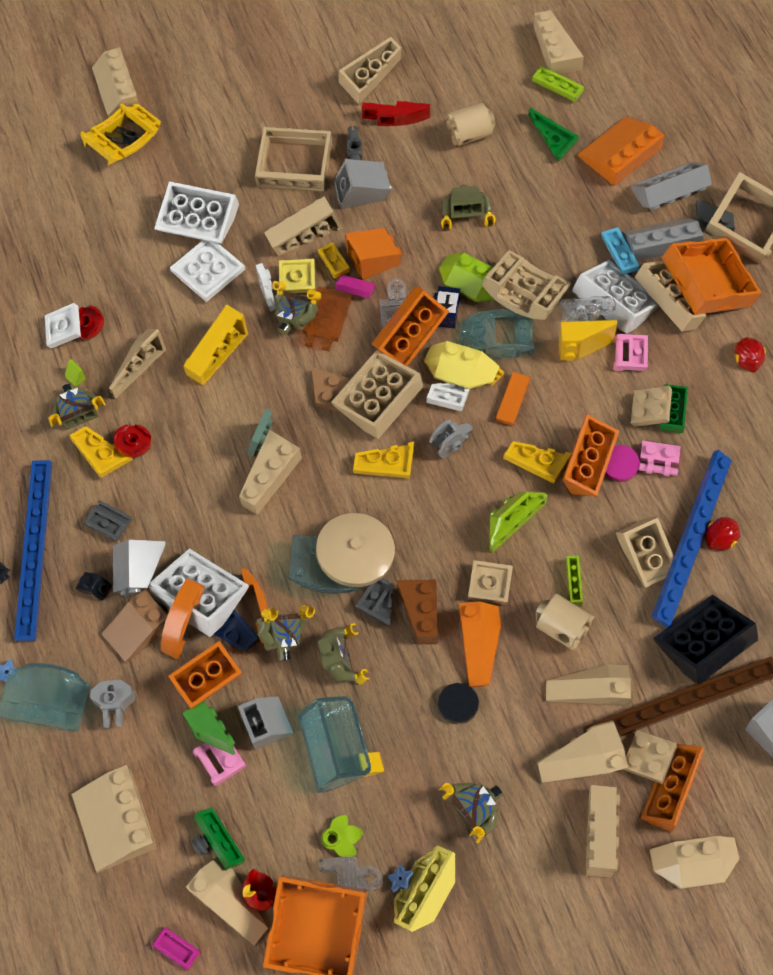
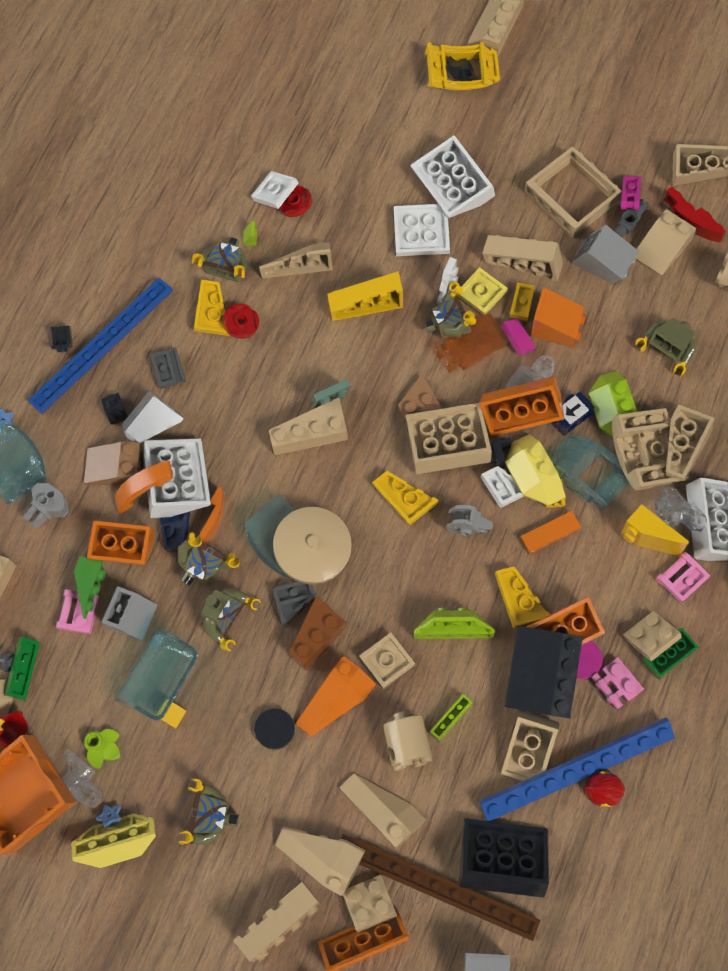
camera: 45 degrees right, 5 degrees up
(338, 127) = (631, 192): none -> dark pink plate
(394, 144) = (664, 242): none -> tan slope
(428, 377) = (497, 454): none -> black bracket
(543, 256) = (686, 440): none -> tan wedge
(608, 489) = (543, 672): none -> black slope

